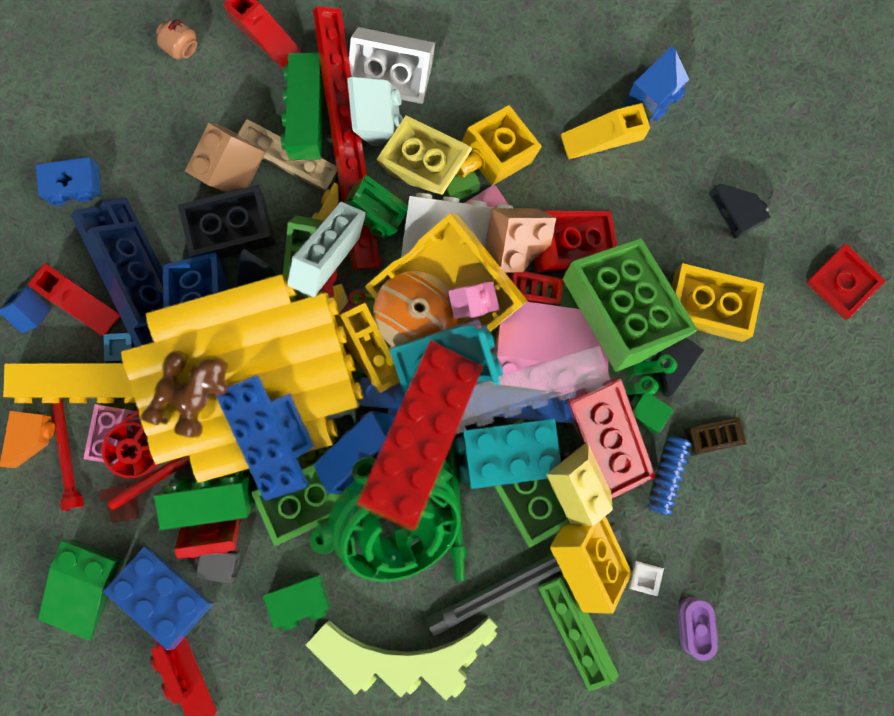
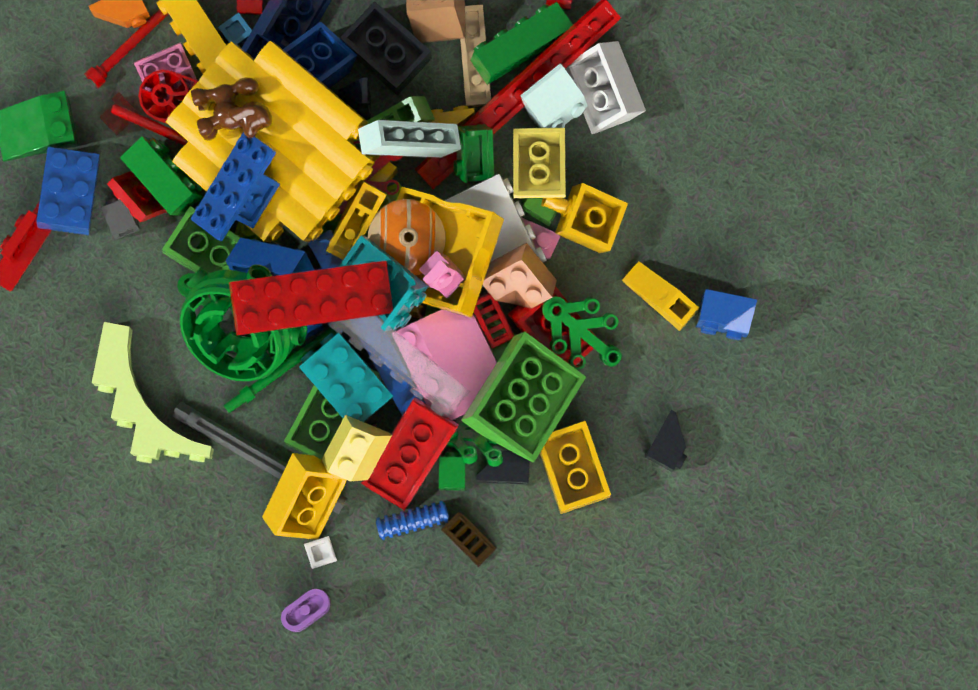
camera: 55 degrees right, 0 degrees up
(297, 602) = (131, 296): green brick -> none
(578, 634) = (243, 528): bright green slope -> none
(595, 218) = (579, 328): none -> green plant
(845, 281) = (664, 566): red plate -> none

